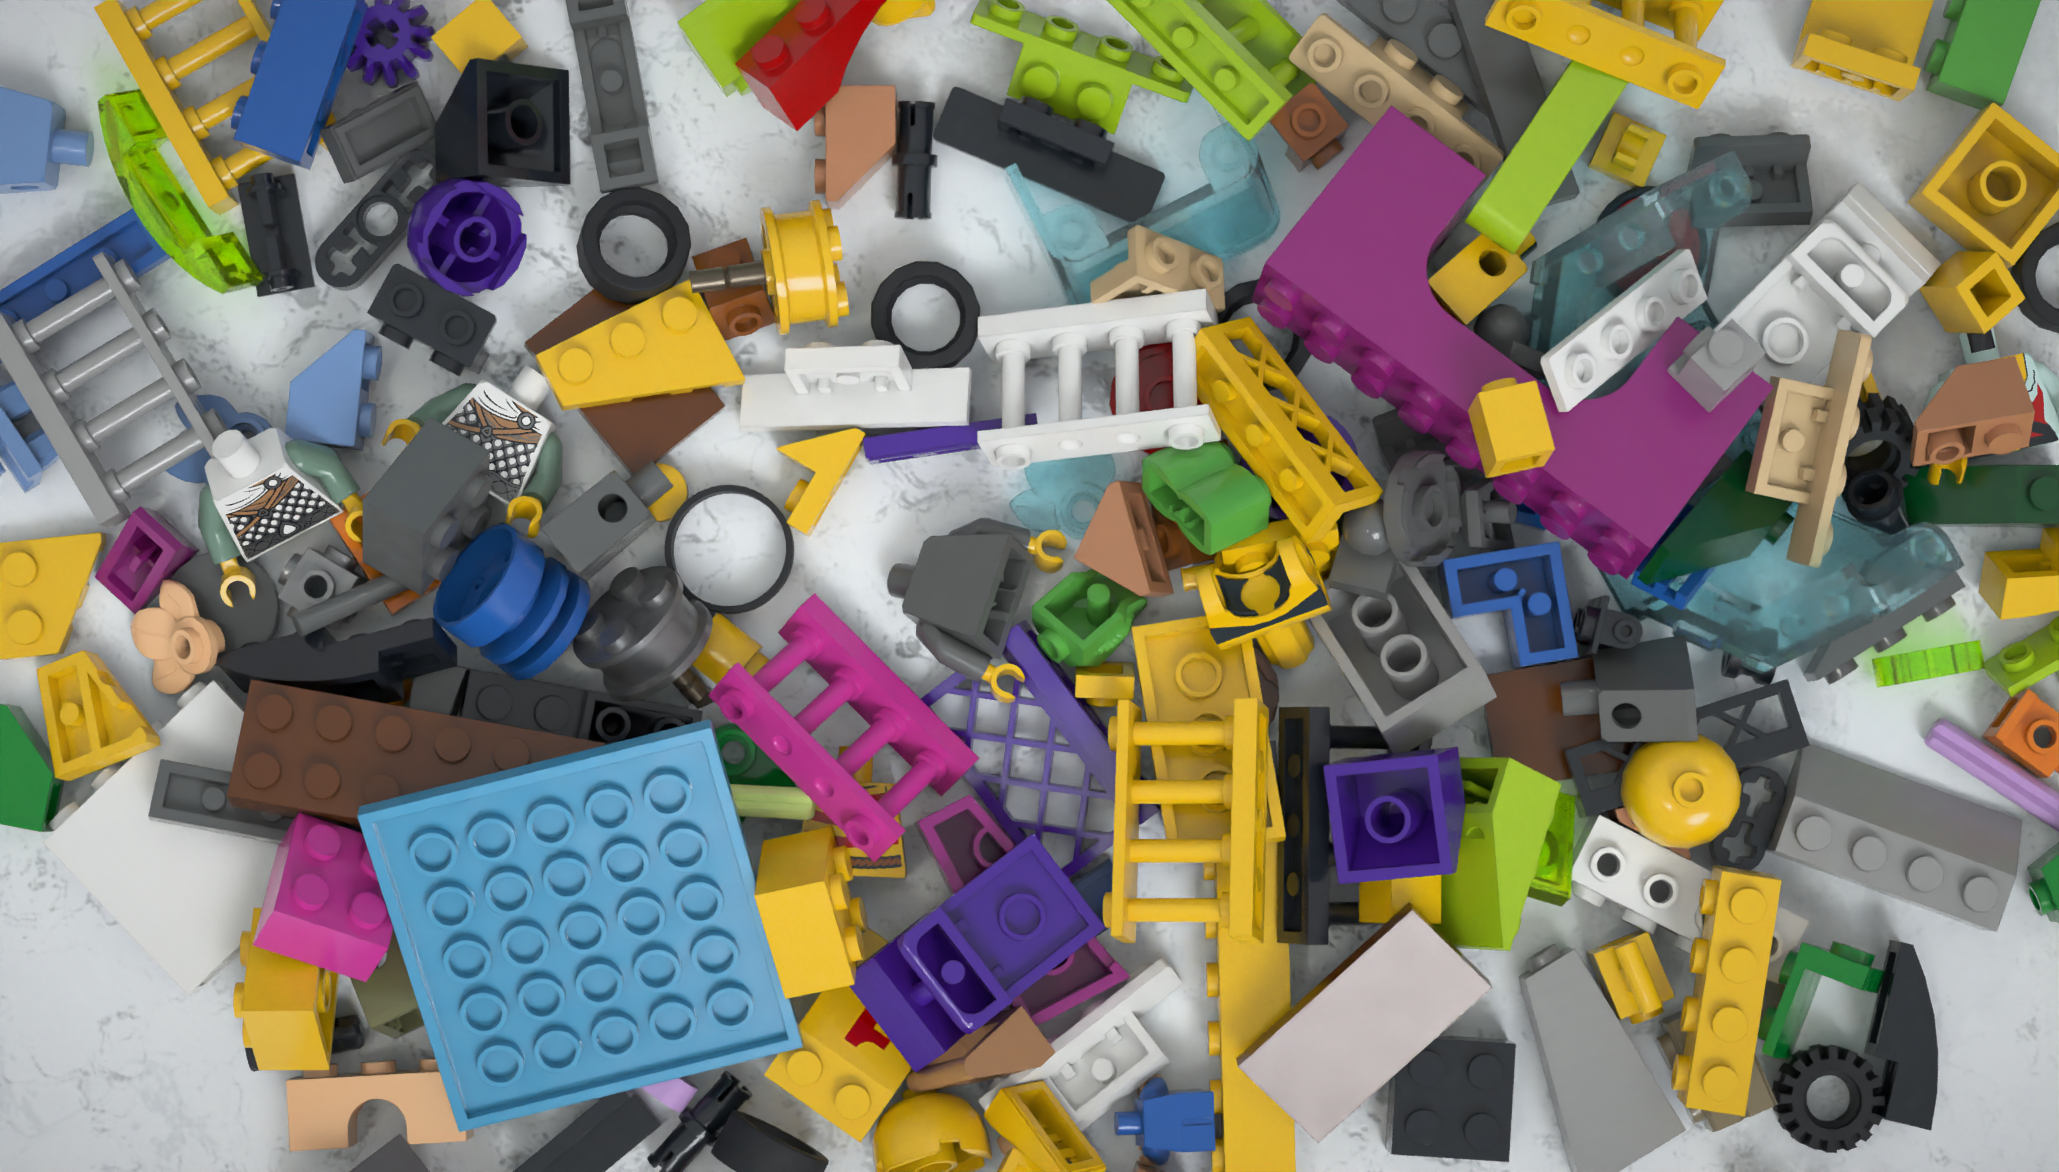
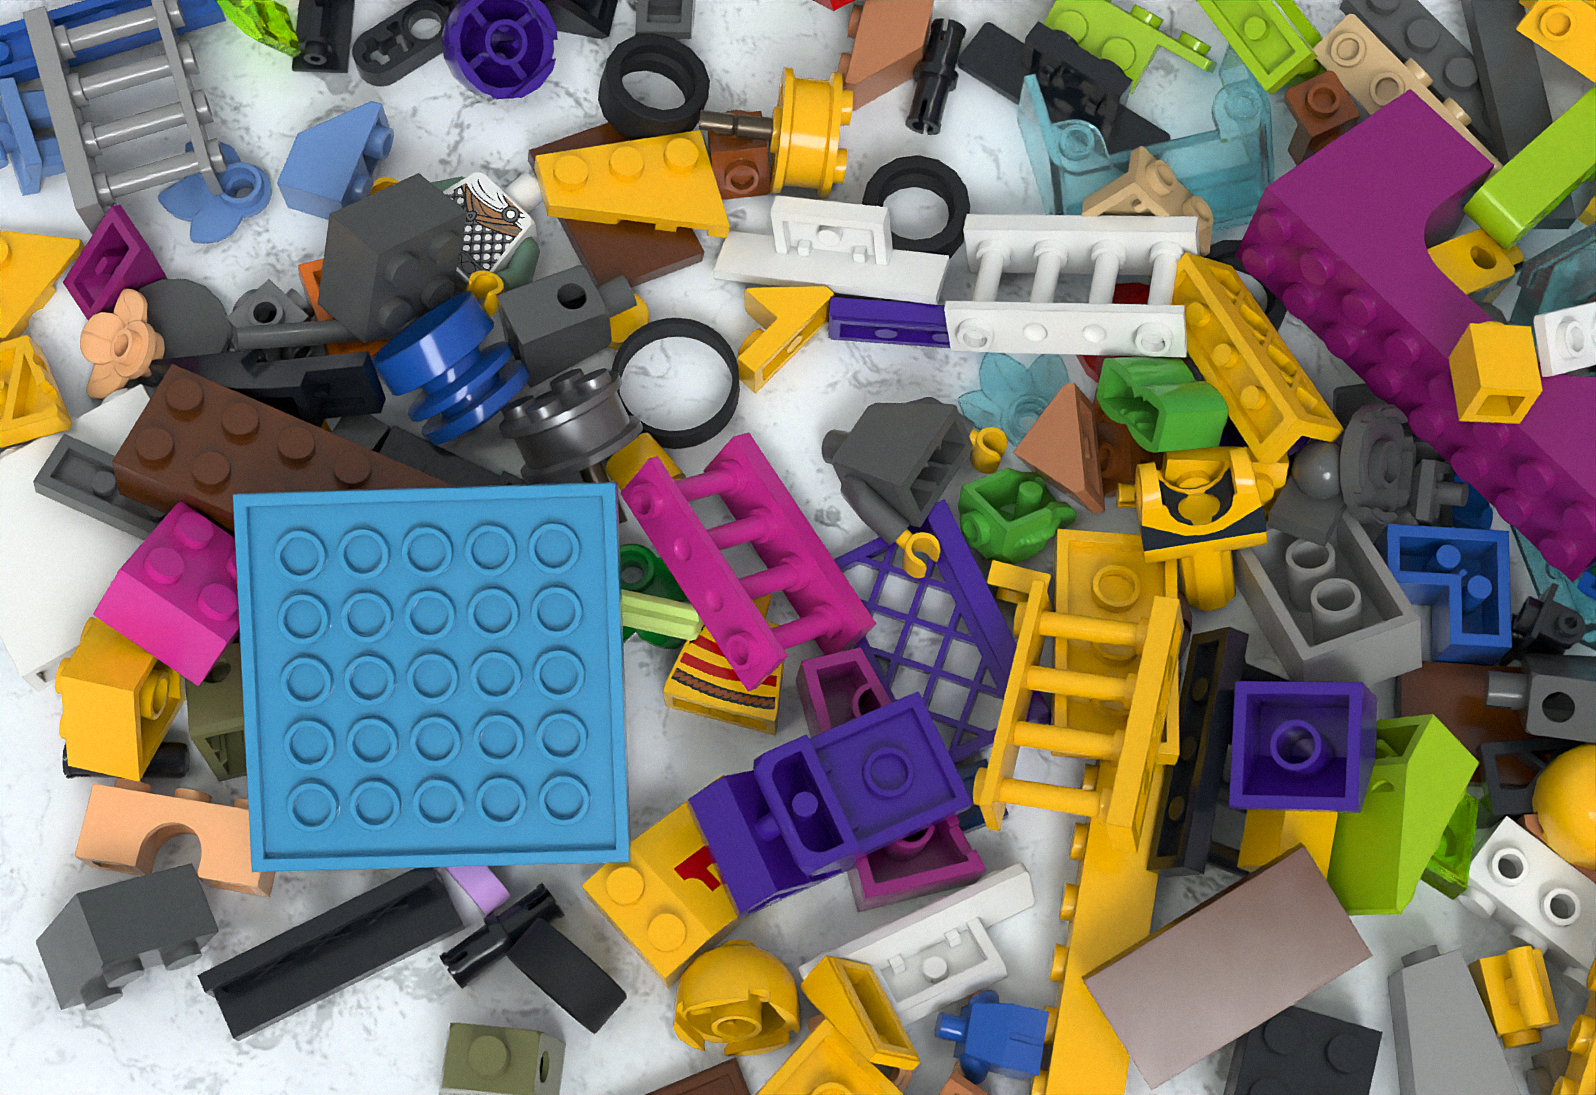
camera: 15 degrees right, 15 degrees down
(268, 494) = (243, 228): torso -> none
(435, 317) = (446, 112): black bracket -> none
(810, 912) = (670, 721): yellow brick -> none
(997, 1049) = (816, 917): medium nougat tile -> none

